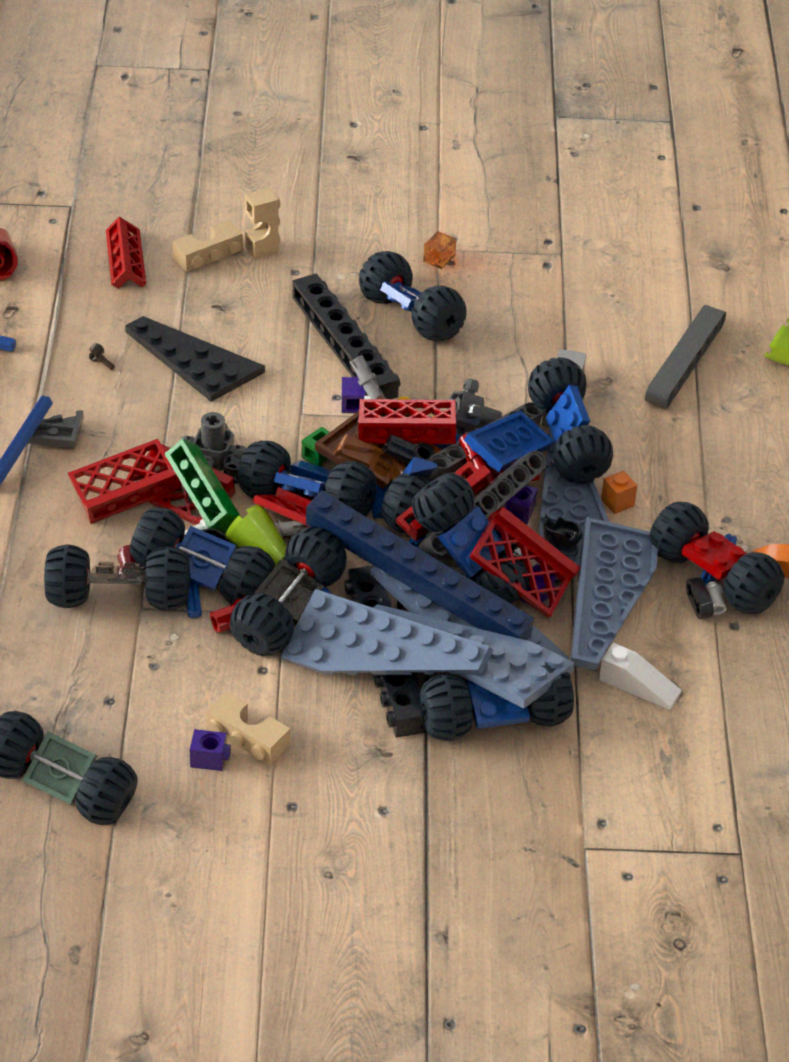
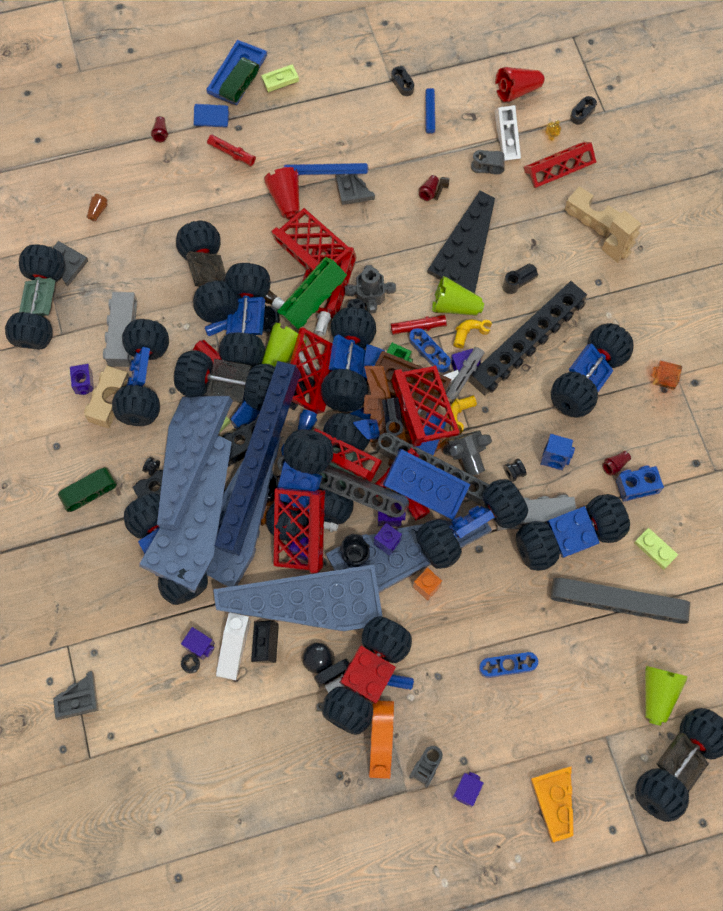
camera: 75 degrees right, 25 degrees up
(33, 485) = (284, 190): none -> red cone
(57, 280) = (508, 132): none -> white slope
(62, 219) = (580, 108): none -> black beam
(77, 245) = (553, 129): none -> clear yellow plate
(91, 308) = (490, 161): none -> dark grey piece
(100, 366) = (428, 189): none -> dark red cone
(151, 693) = (122, 311): none -> light grey brick
(196, 661) = (135, 403): none -> black plate
(240, 502) = (323, 320): none -> white pin
(263, 325) = (519, 277): none -> black piece
(264, 379) = (455, 299): none -> lime cone
(284, 414) = (425, 323): none -> red pin
(304, 425) = (428, 342): none -> blue beam
(308, 387) = (465, 327): none -> yellow piece
(368, 705) = (151, 466): none -> black bush
(376, 777) = (87, 489): none -> dark green beam
(501, 347) = (557, 452): none -> blue brick
(505, 390) = (515, 470): none -> black wheel
(528, 317) = (615, 463): none -> dark red cone
(557, 501) = (387, 539): none -> dark purple brick
(558, 304) = (641, 487): none -> blue brick
(597, 336) = (601, 520): none -> black plate
(627, 709) = (198, 644): none -> dark purple brick
(635, 317) = (656, 548): none -> yellowish green plate
(652, 732) = (186, 658): none -> black bush
(653, 653) = (265, 642): none -> black slope
(662, 843) = (77, 699): none -> dark grey wing
(677, 608) = (317, 657): none -> black hair
(725, 464) = (522, 657): none -> blue beam

